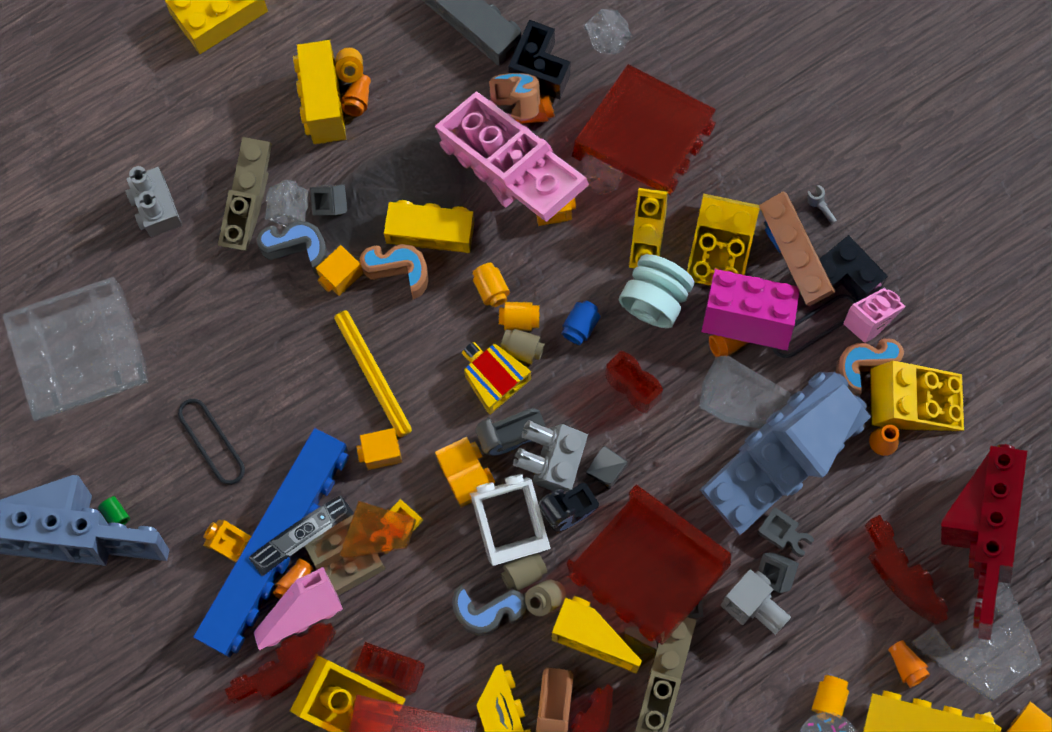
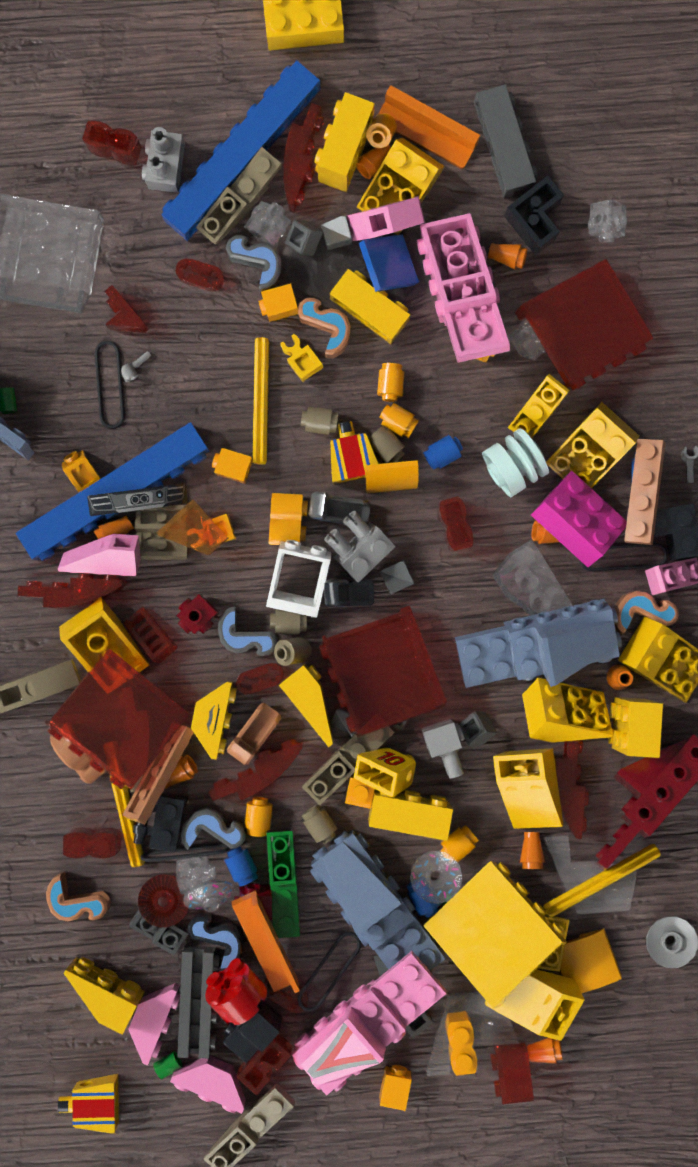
camera: 25 degrees right, 15 degrees up
(87, 213) = (110, 142): none -> clear red brick
(195, 365) = (126, 319): none -> clear red slope
(223, 416) = (128, 370): none -> light grey hand
(231, 121) = (259, 129): none -> blue brick
(242, 282) = (198, 280): none -> clear red beam
(283, 131) = (298, 166): none -> clear red slope
(359, 178) = (336, 233): none -> dark grey slope
(392, 313) = (302, 360): none -> yellow plate
(394, 40) = (430, 128): none -> orange panel
(394, 105) = (402, 176): none -> yellow slope
(397, 139) = (385, 219): none -> bright pink slope
(424, 177) = (388, 262): none -> blue tile
(426, 605) = (206, 614): none -> dark red brick
(442, 358) = (319, 420): none -> dark tan brick
(518, 90) = (504, 233): nougat animal -> none
(522, 642) = (262, 684): none -> clear red beam
(544, 370) = (391, 476): none -> light orange slope
(697, 701) = (359, 793): none -> light orange brick
(719, 658) = (385, 770): none -> yellow torso
(762, 691) = (411, 814): none -> yellow brick
(780, 529) = (499, 700): dark grey plate -> none
(852, 502) = (565, 712): none -> yellow slope
(866, 598) = (529, 787): none -> yellow slope
(930, 472) = (636, 726): none -> yellow brick
(996, 649) = (601, 880): none -> yellow axle

